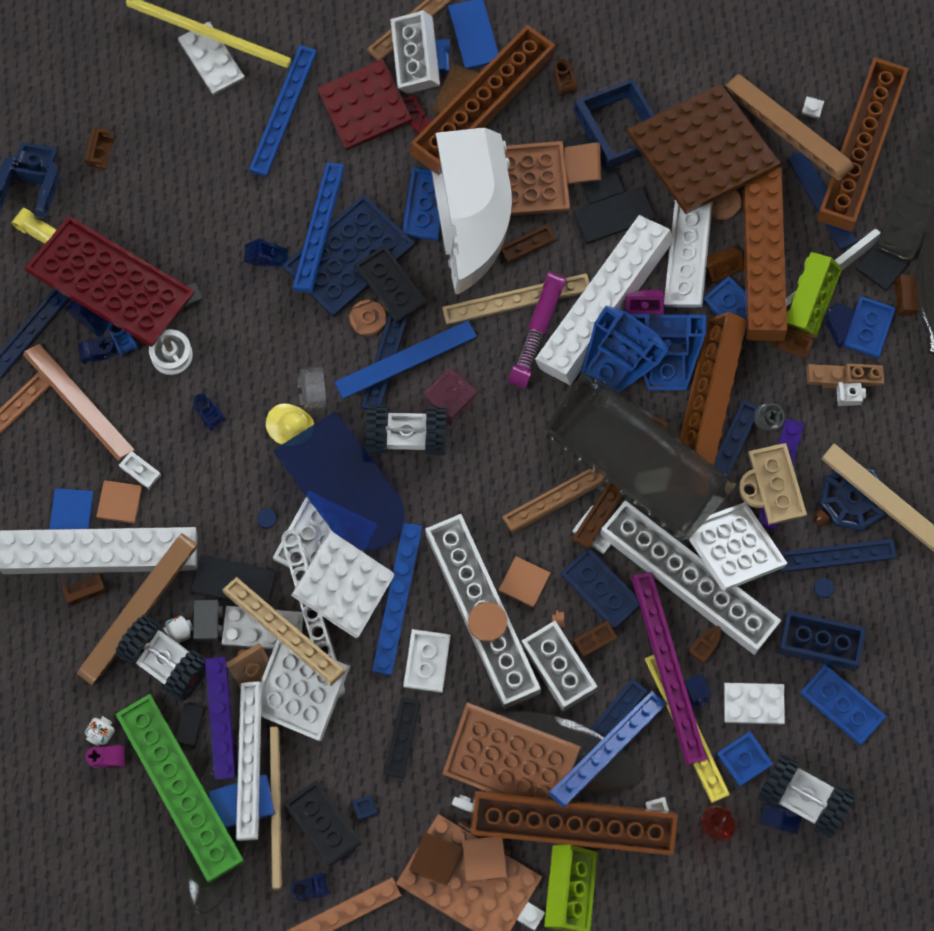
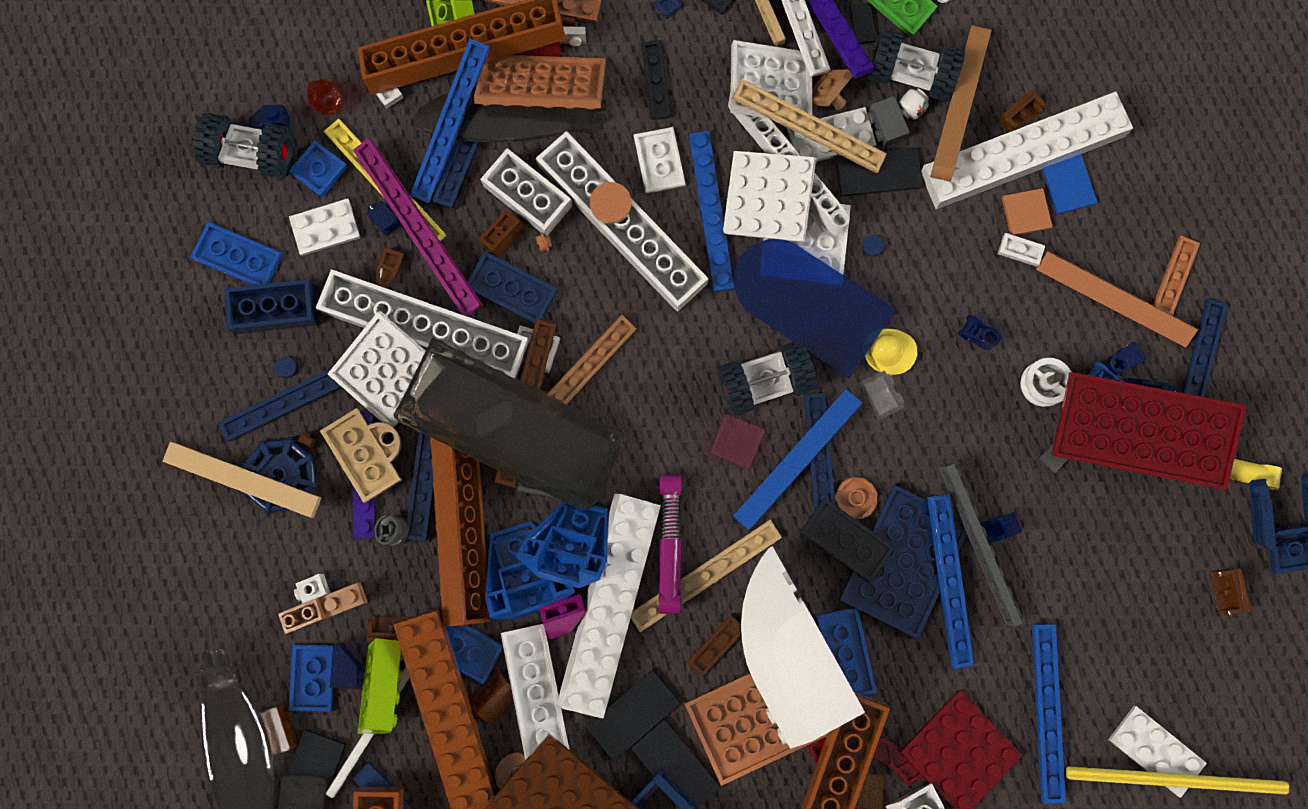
camera: 160 degrees right, 10 degrees up
(283, 250) = (983, 551): none -> dark grey plate
(524, 581) = (590, 270): nougat tile -> none
(583, 163) = (687, 763): nougat tile -> none

